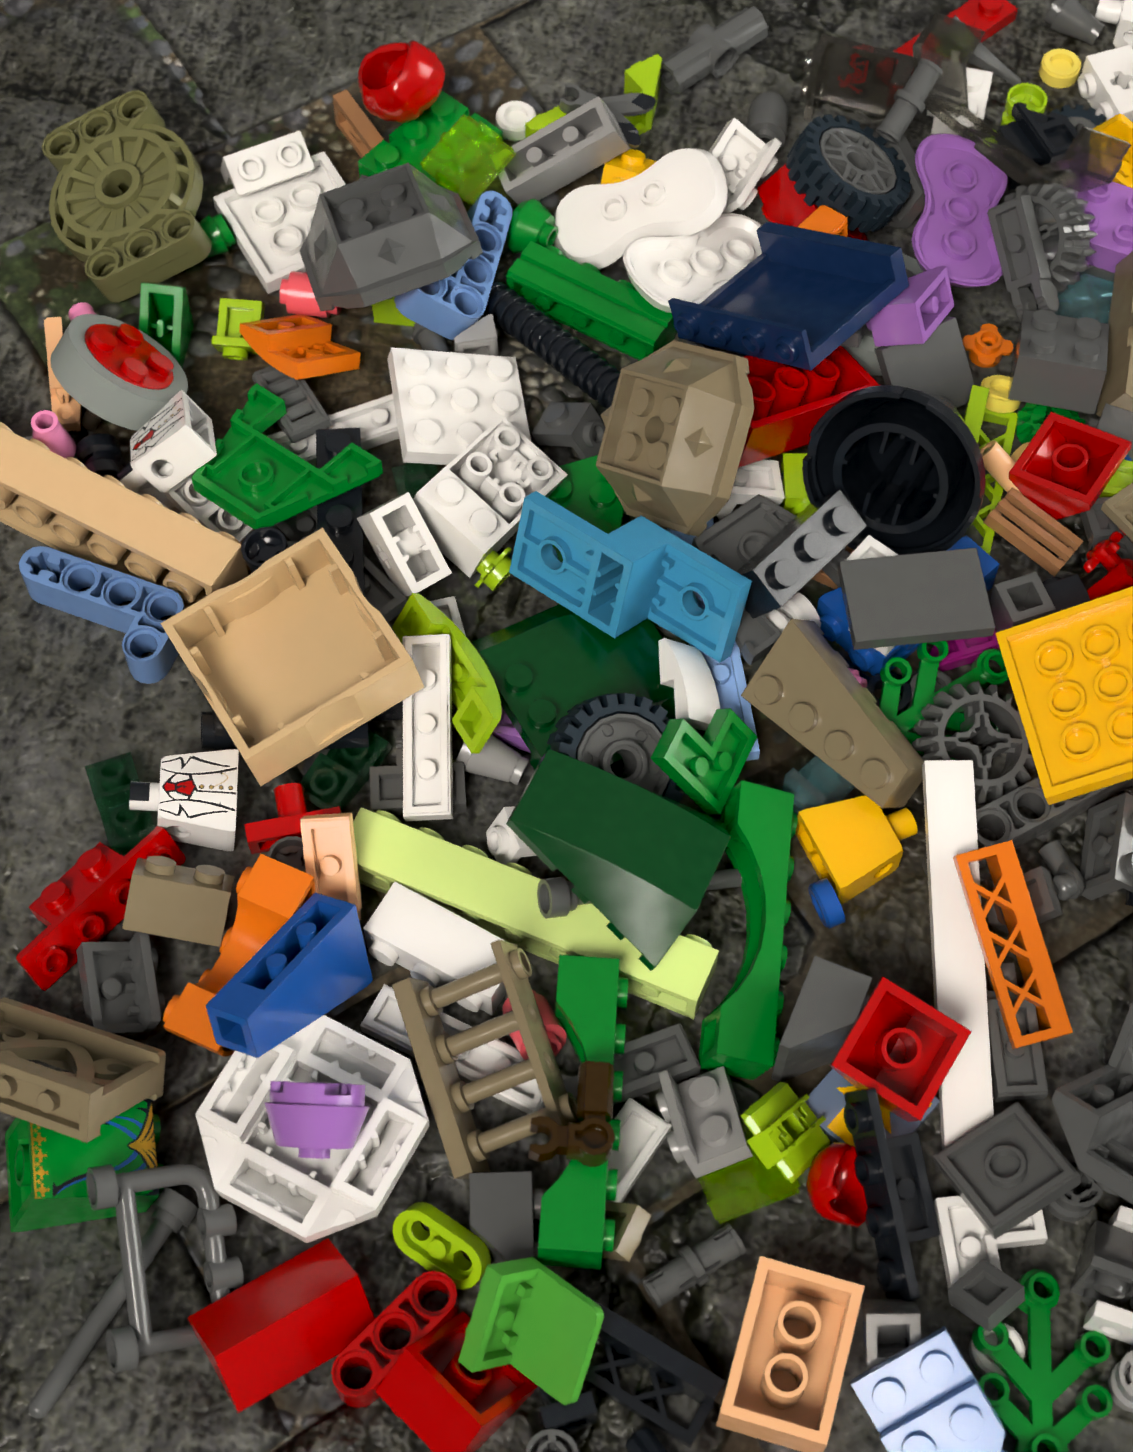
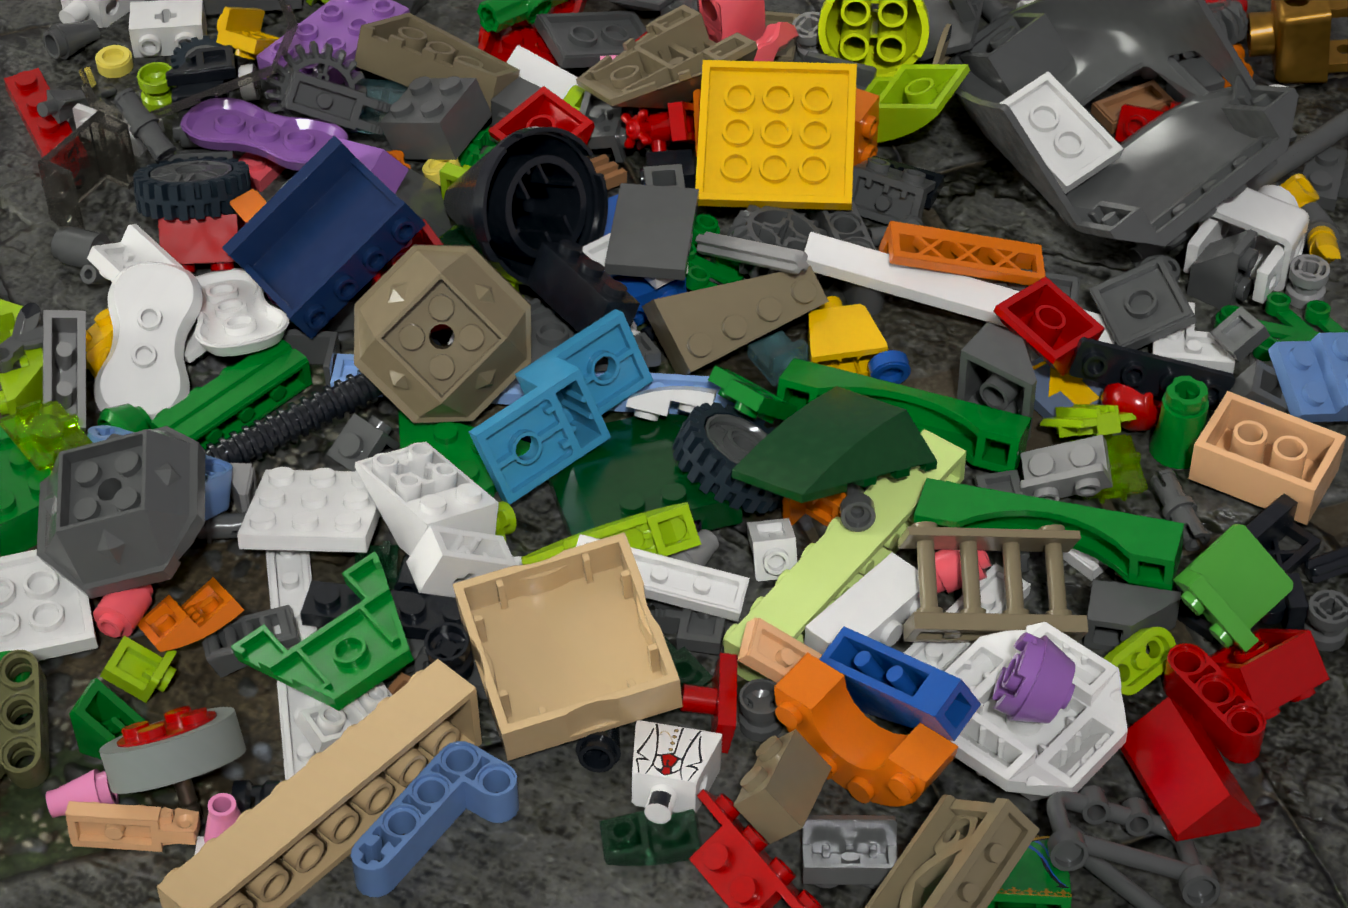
camera: 75 degrees left, 15 degrees down
(169, 446) = (282, 716): white torso -> none
(592, 1137) = (1089, 507): dark brown bar -> none
(821, 1222) = (1179, 422): none -> green plant
(920, 709) = (752, 252): none -> light grey axle

